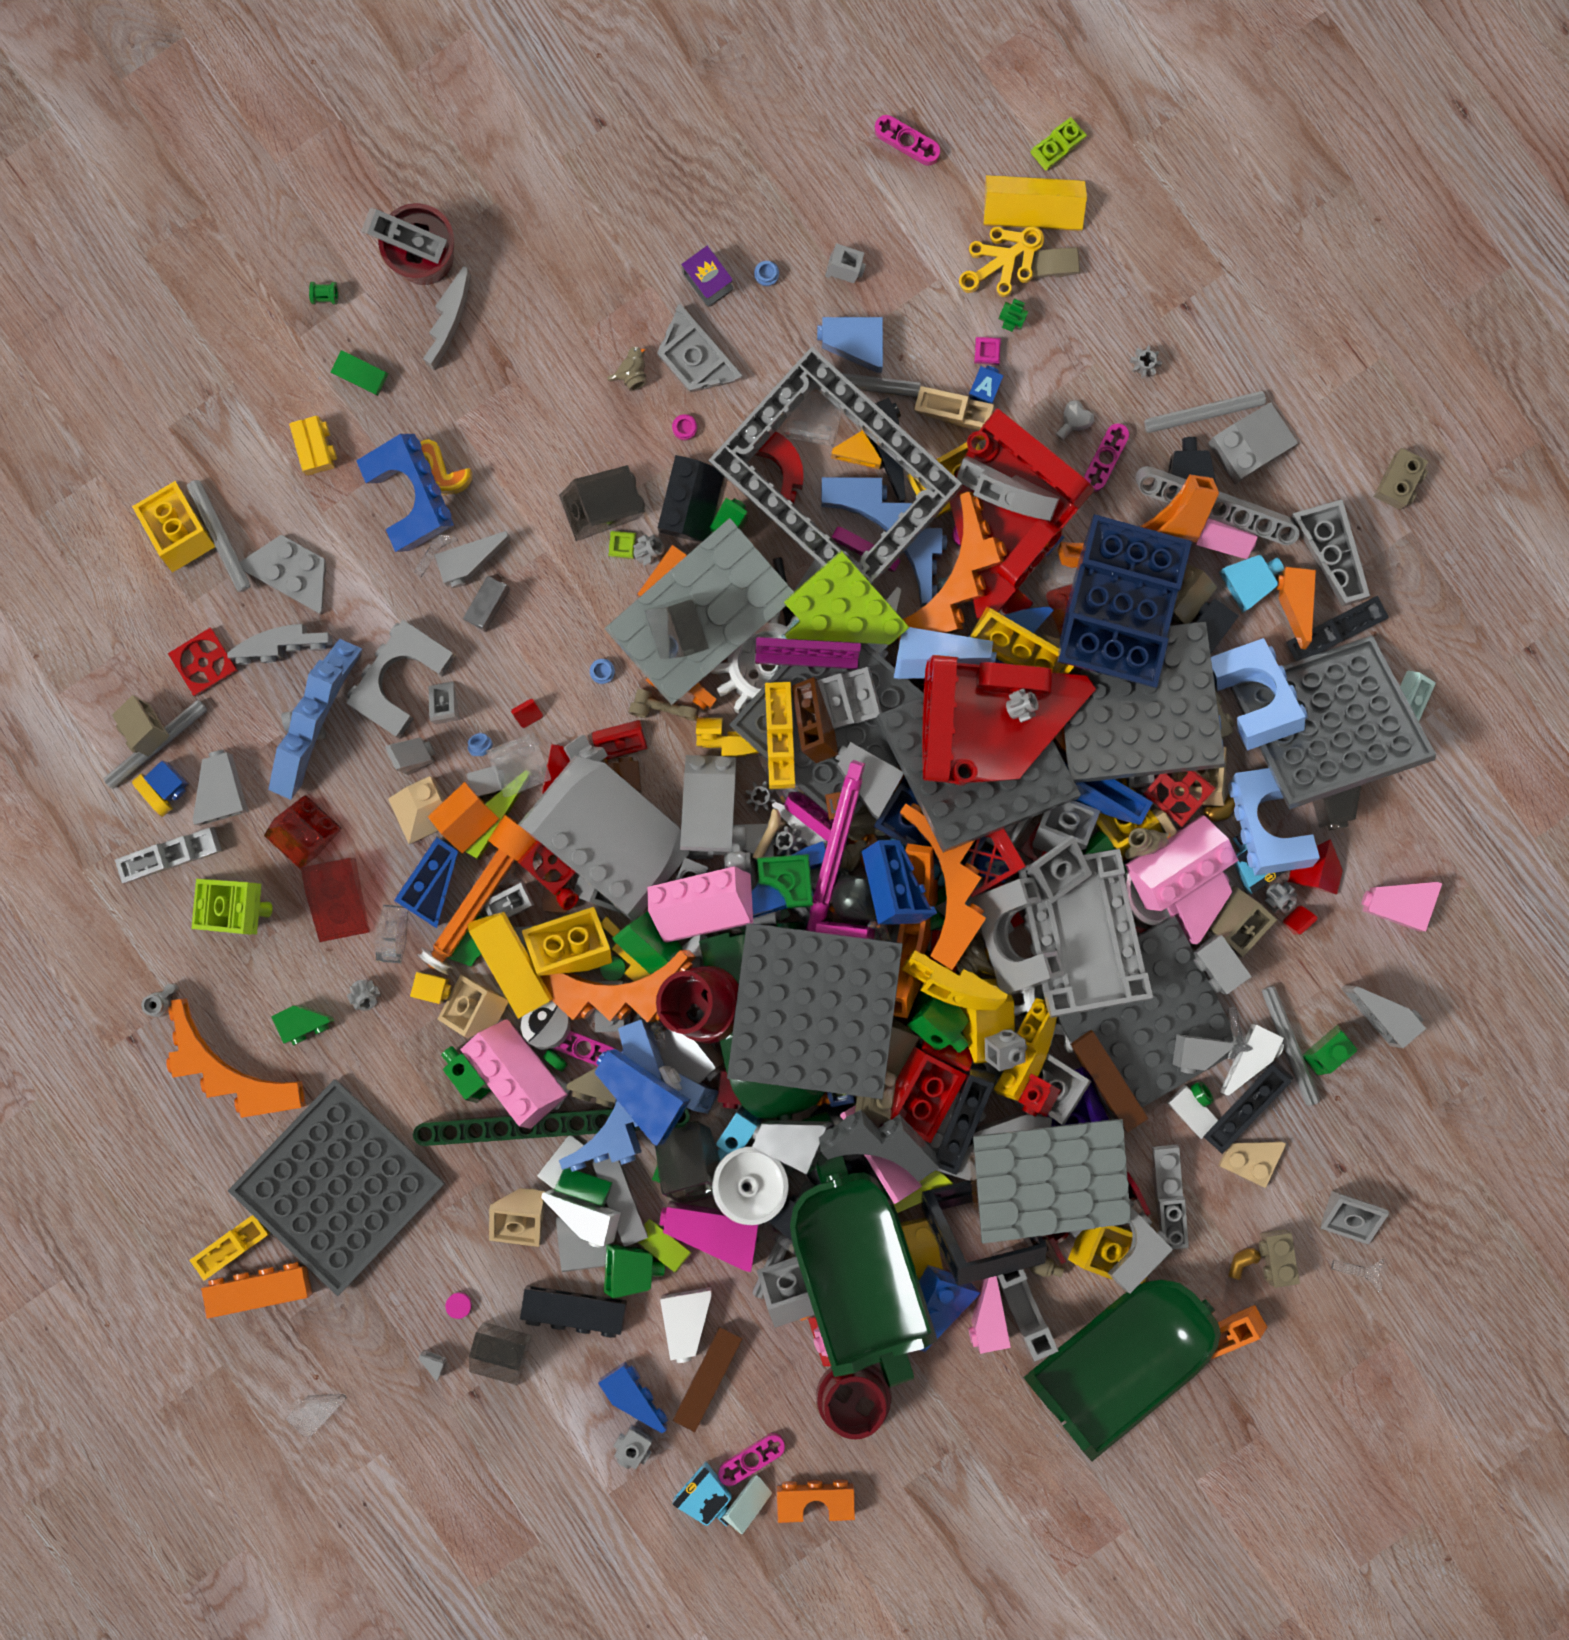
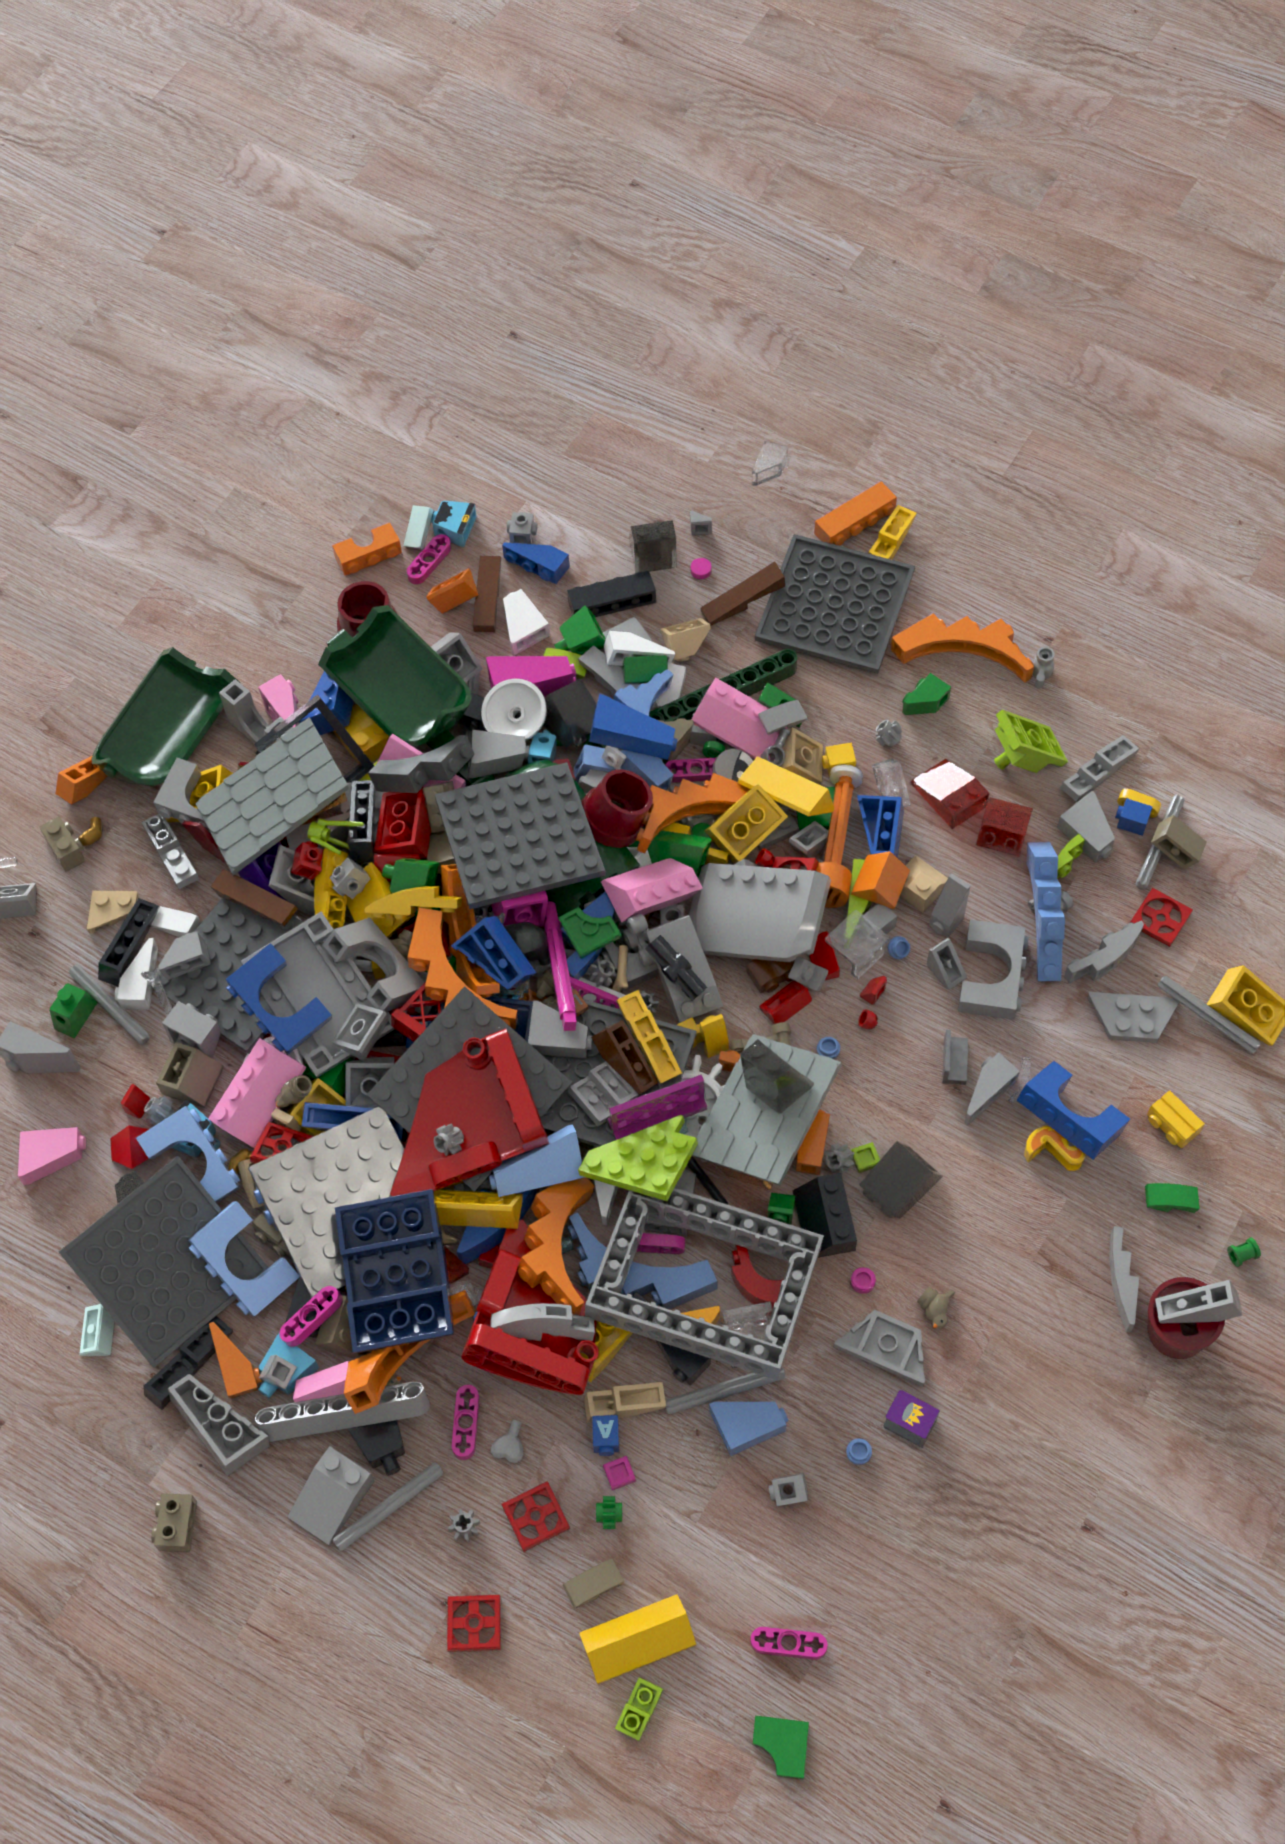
camera: 160 degrees right, 25 degrees down
(250, 772) = (1071, 851): none -> lime slope
(430, 1242) = (738, 597): none -> reddish brown slope
(470, 1048) = (782, 716): none -> light grey slope
(498, 1013) = (776, 753): none -> flat silver bar
(554, 682) = (867, 1019): none -> red hinge
(719, 798) = (676, 967): none -> black piece
(744, 1398) = (453, 591): none -> orange slope
(948, 62) = (784, 1742): none -> green tile
(1005, 258) = (640, 1565): yellow plant -> none
(1014, 1119) = (320, 833): none -> lime plant
(1096, 326) = (509, 1508): none -> red piece
(1134, 902) = (286, 1031): none -> blue arch
(1159, 272) = (454, 1603): none -> red piece
(1198, 619) = (300, 1316): none -> dark pink beam
(1201, 906) = (224, 1067): bright pink slope -> none
(1202, 1093) = (170, 933): green tile -> none
(1263, 570) = (277, 1371): none -> light grey slope

